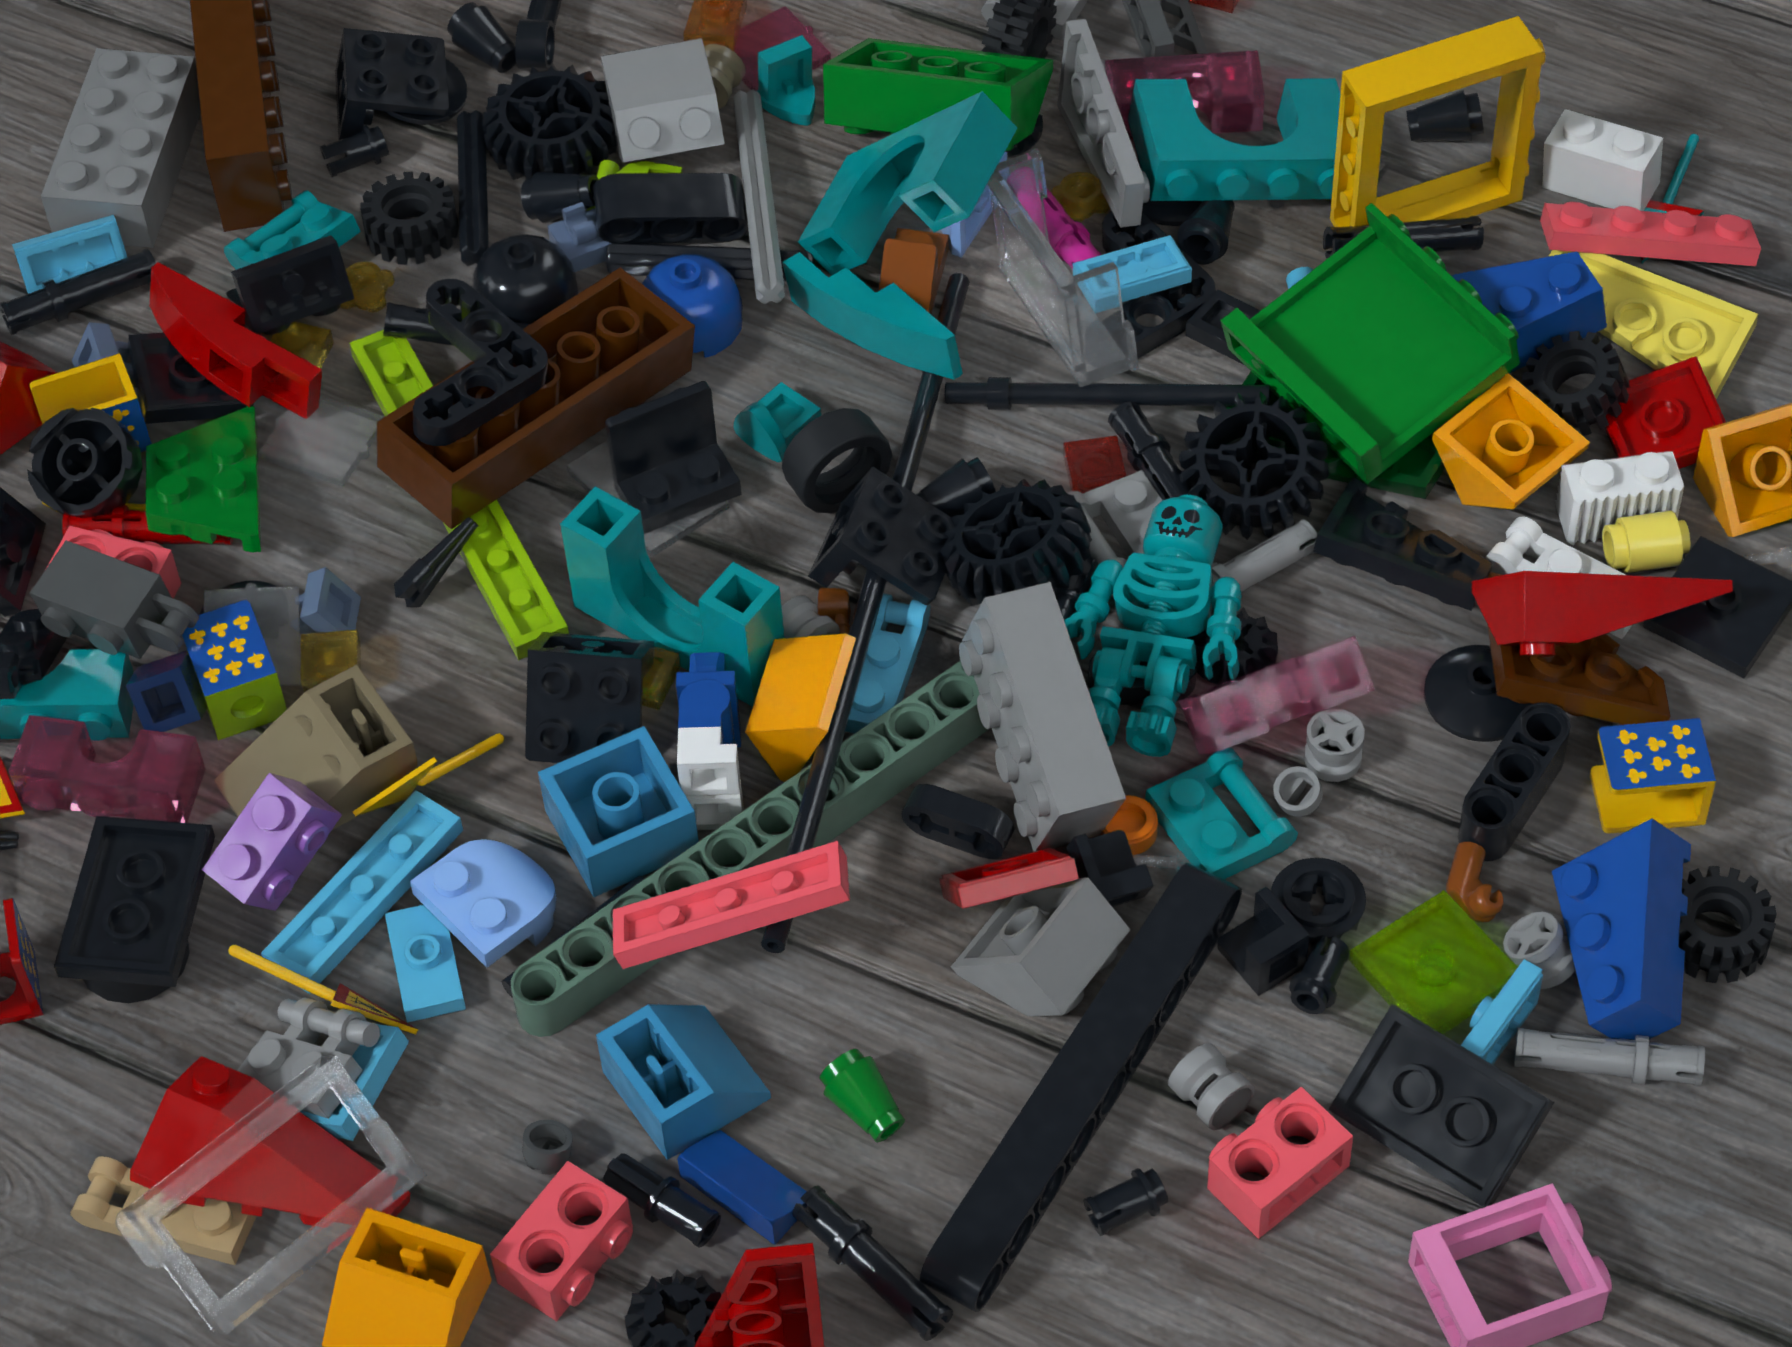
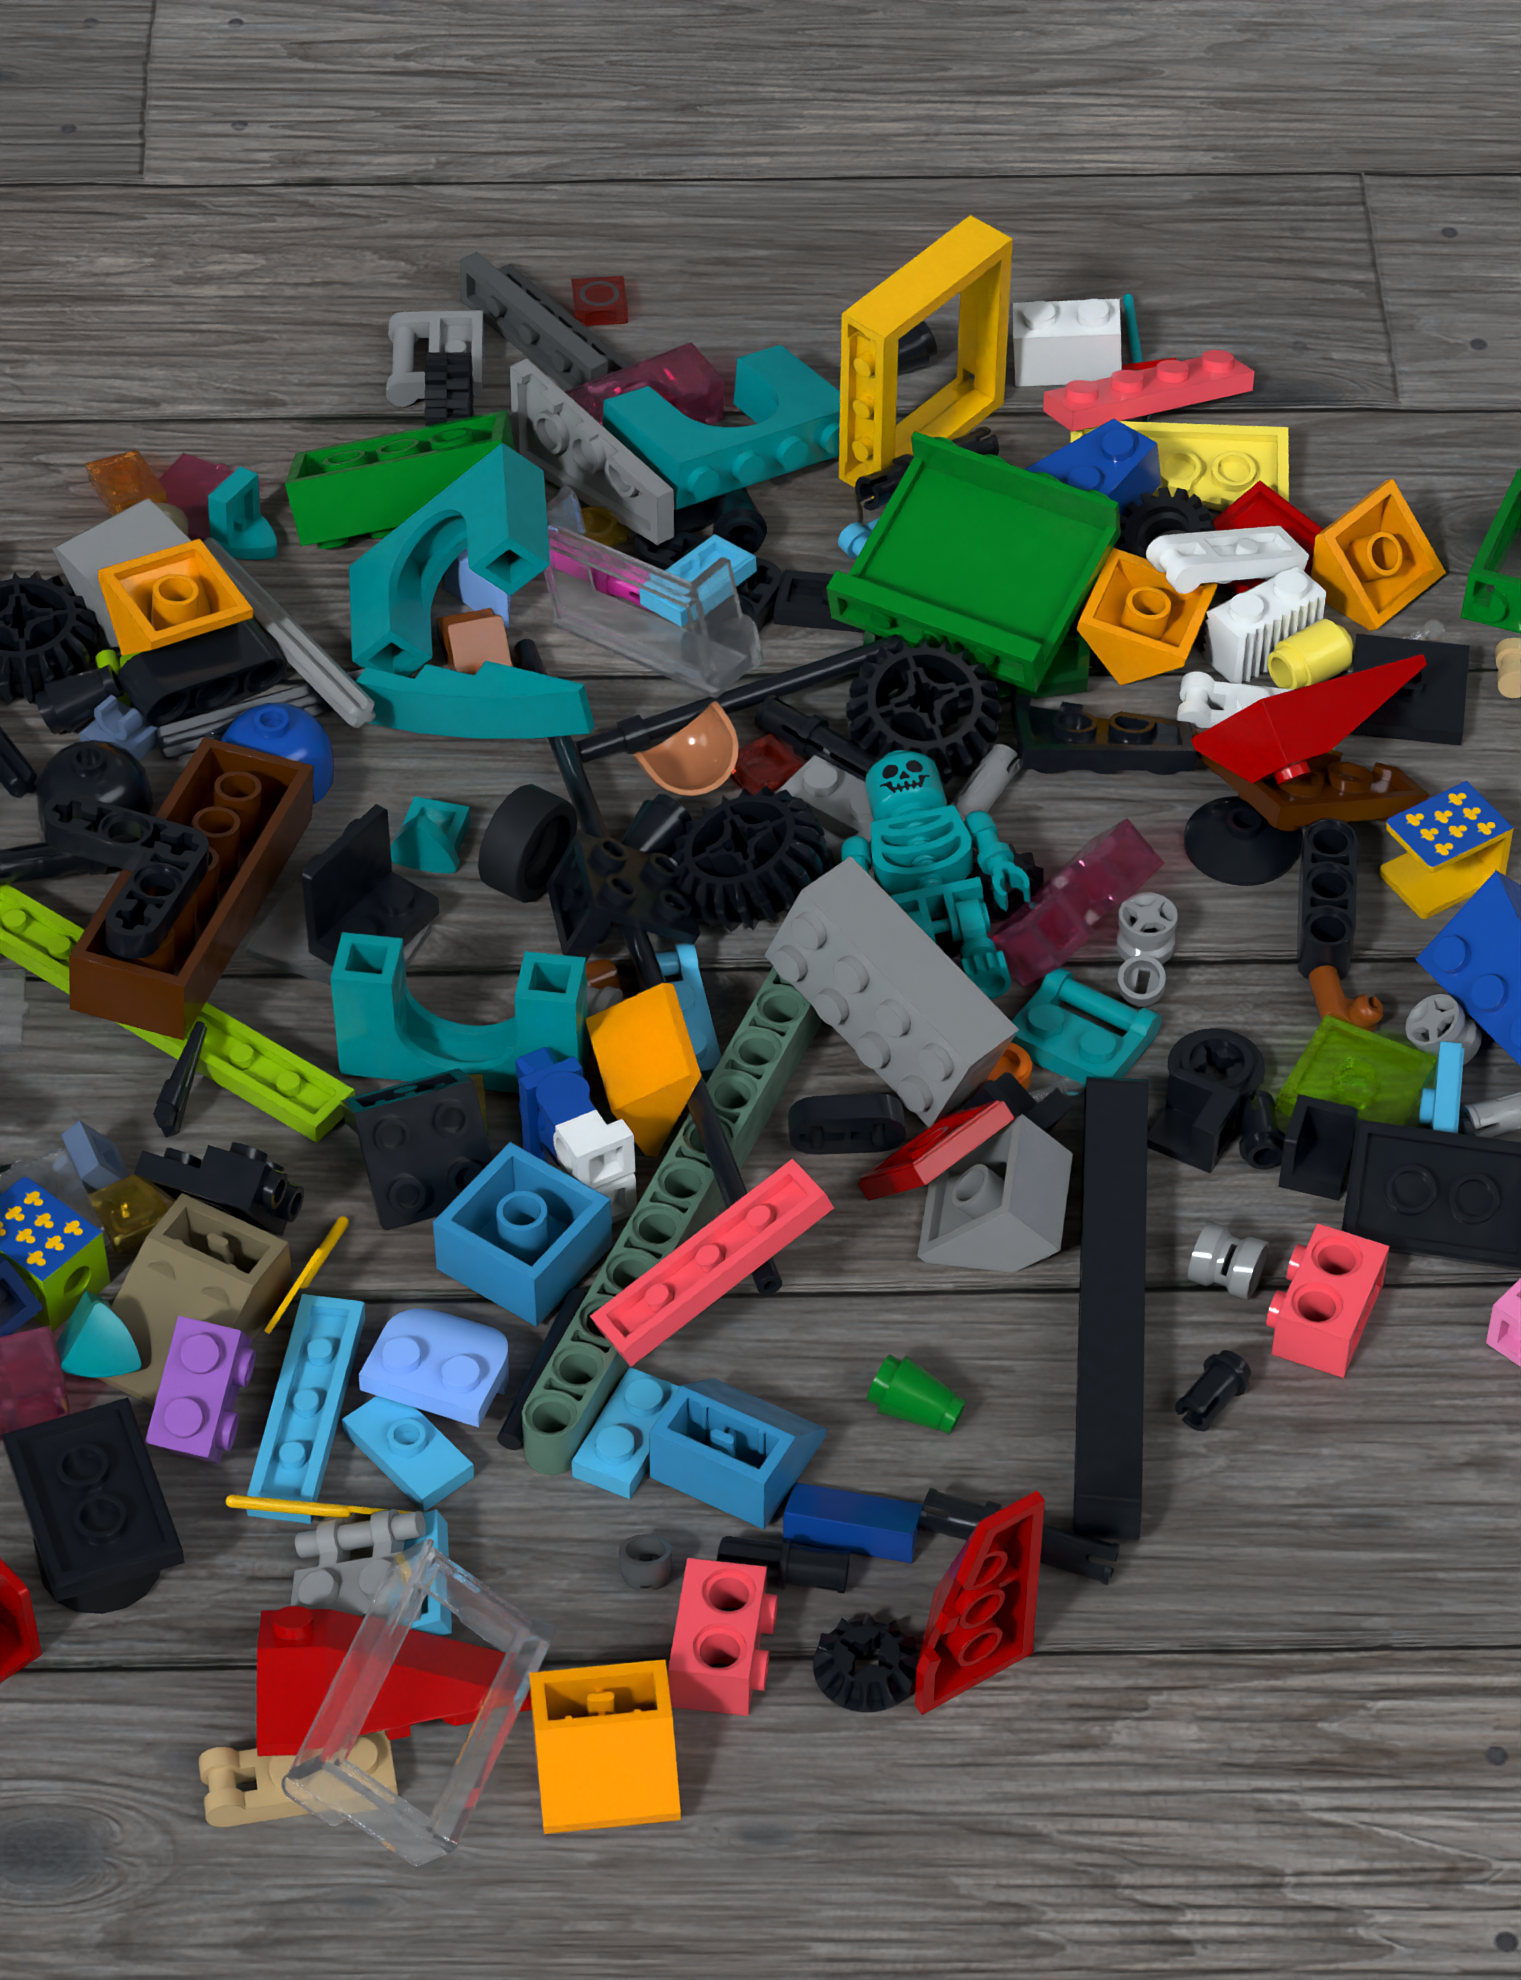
camera: 30 degrees left, 5 degrees down
(227, 767) = (96, 1341): none -> teal tile
(403, 671) = (230, 1181): none -> black plate
(575, 1034) = (618, 1444): none -> medium azure plate
(665, 132) = (170, 597): none -> light orange slope
(1027, 436) = (695, 757): none -> nougat helmet
(1352, 1009) = (1318, 1147): none -> black panel
(1608, 418) = (1224, 556): none -> white plate

